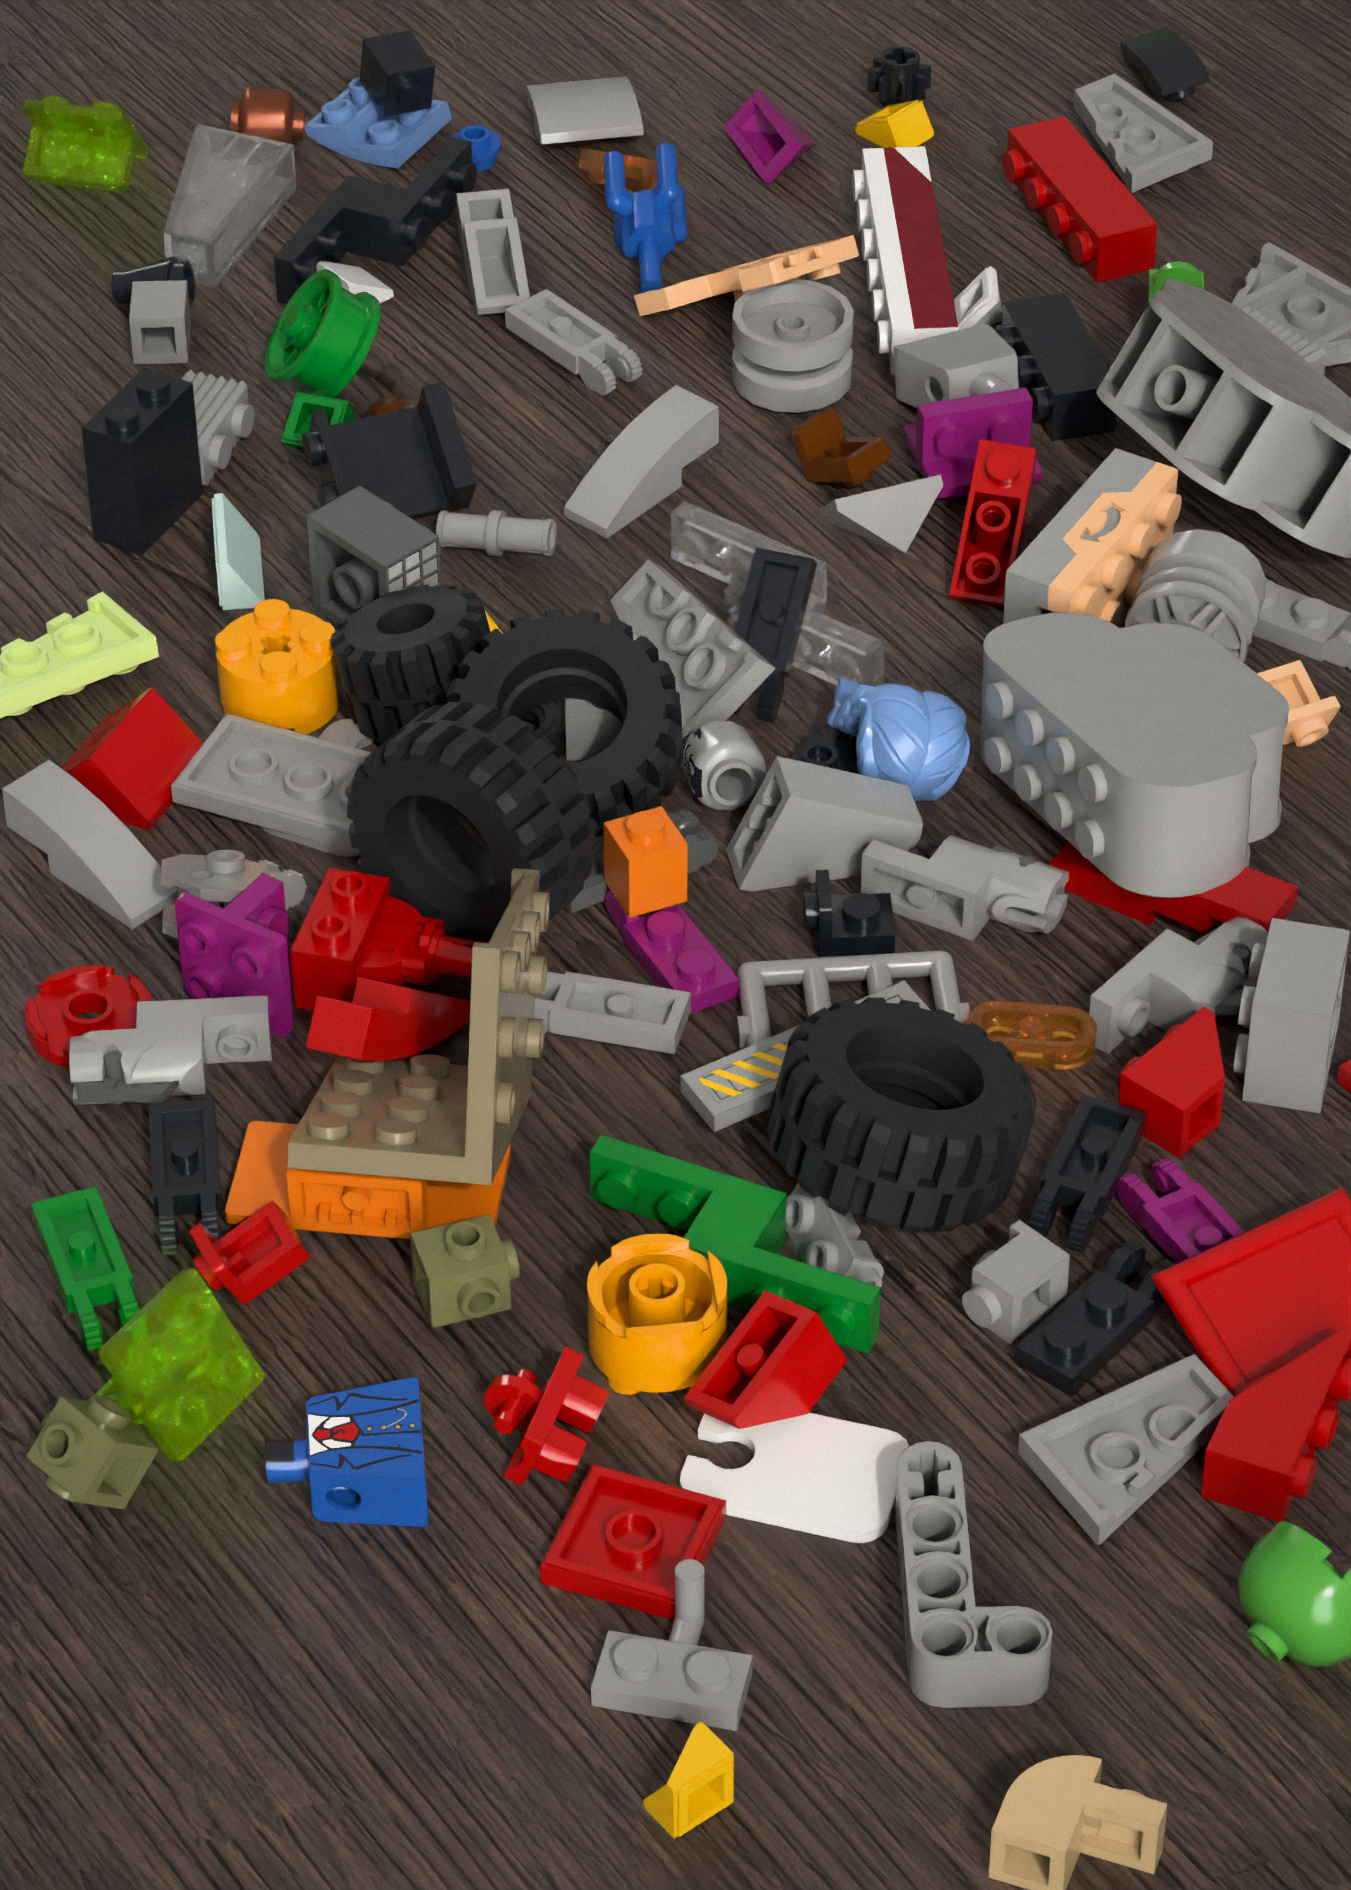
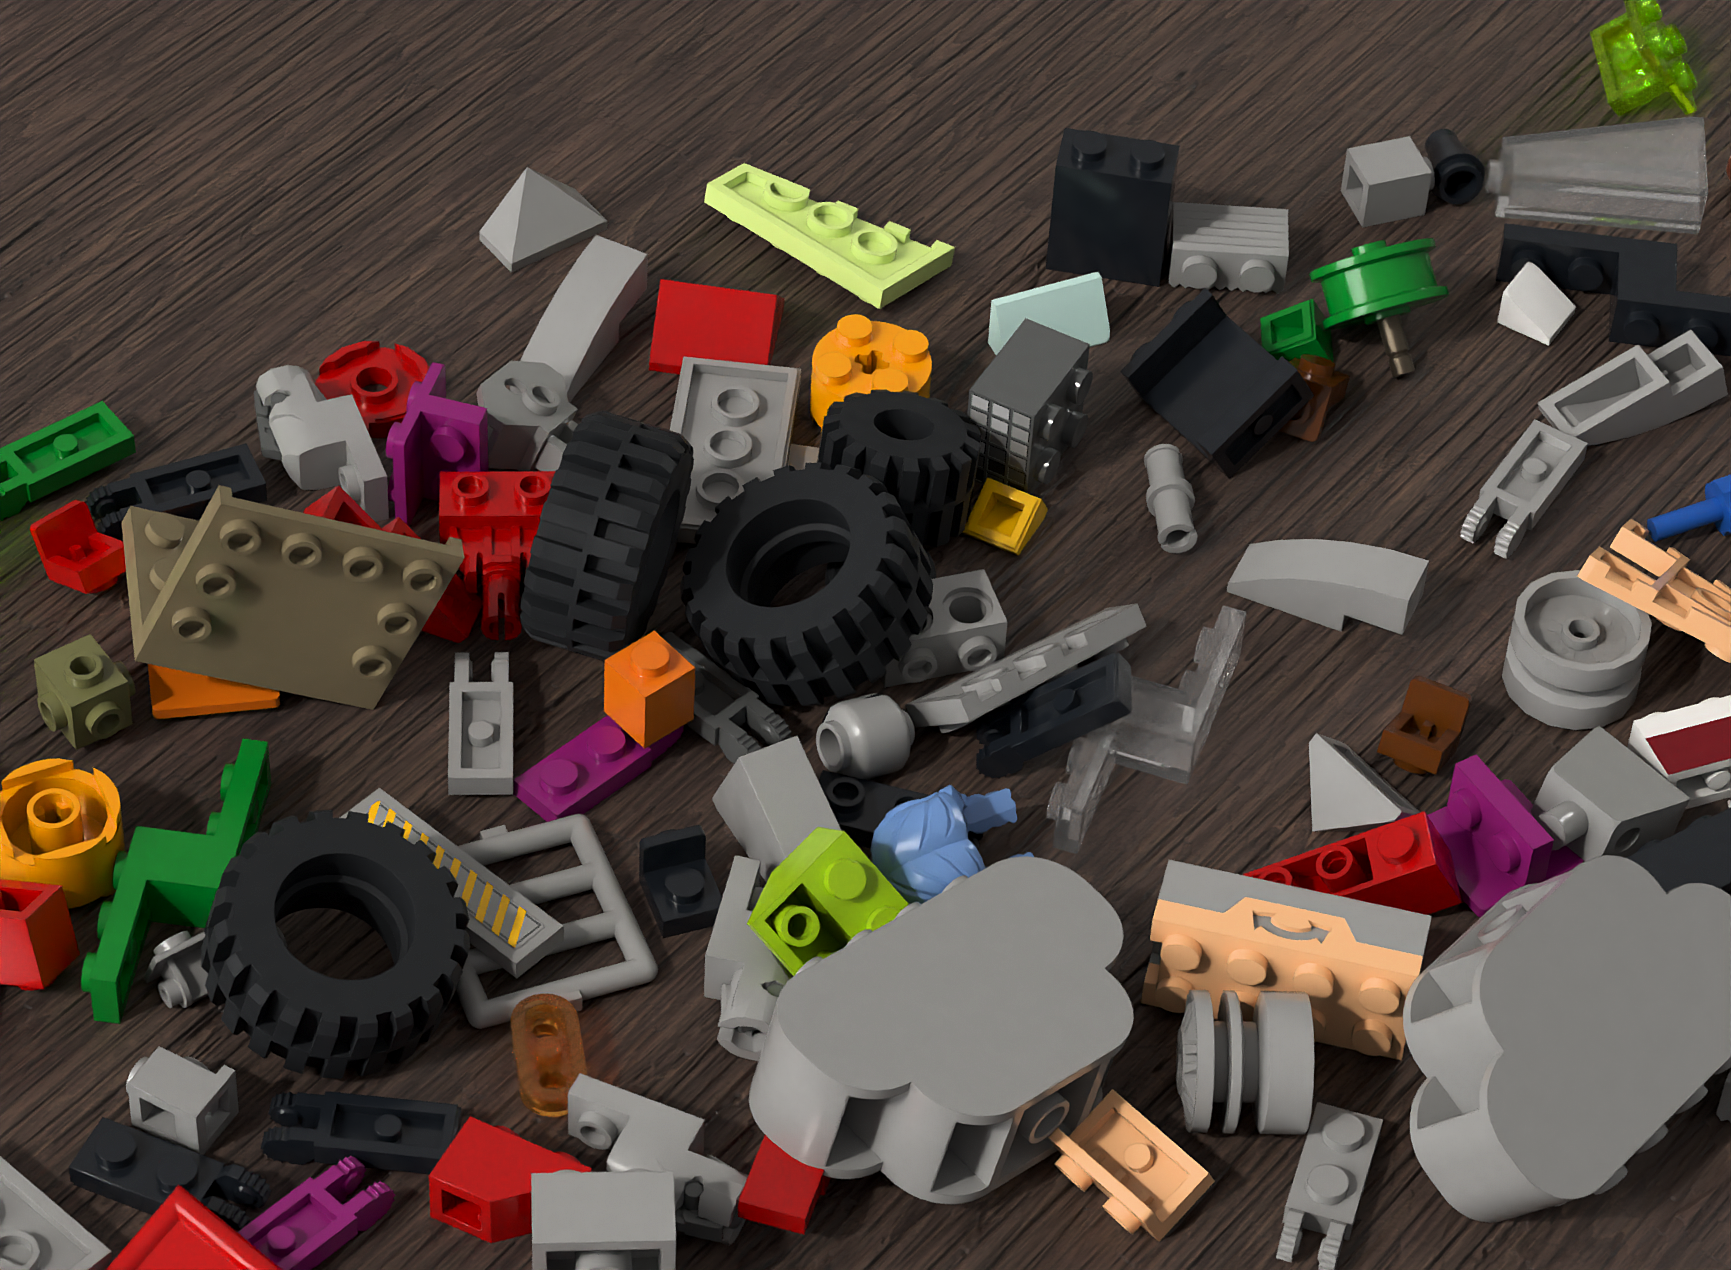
camera: 70 degrees right, 5 degrees up
(964, 793) = (822, 899): none -> lime slope

